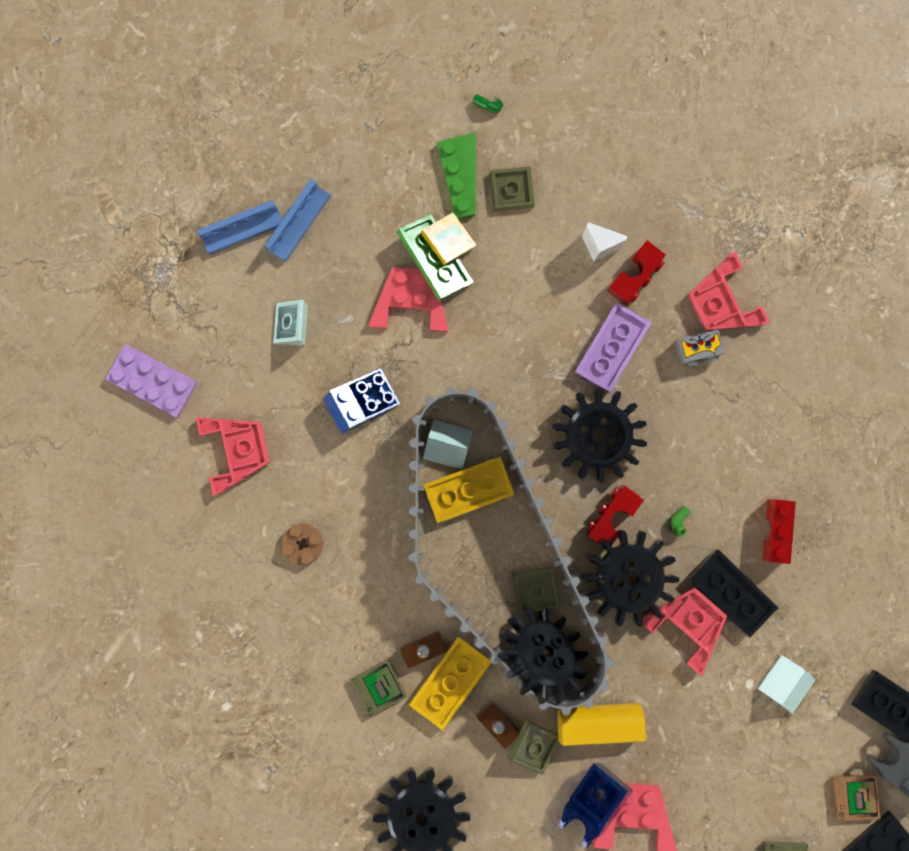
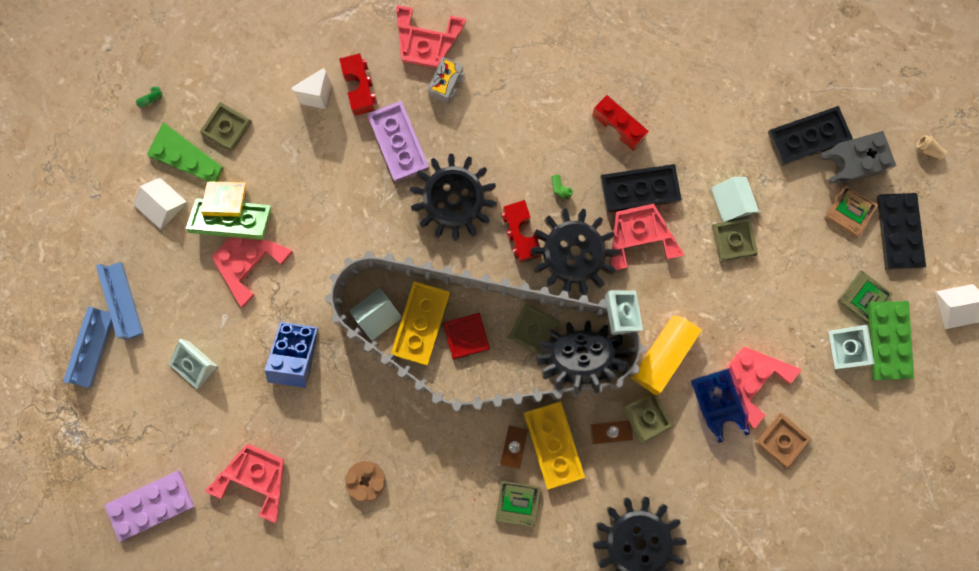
camera: 50 degrees left, 5 degrees down
(404, 185) = (158, 202): none -> white slope
(487, 537) = (466, 336): none -> red tile
(607, 665) = (623, 312): none -> light aqua slope
(749, 710) = (734, 239): none -> olive tile

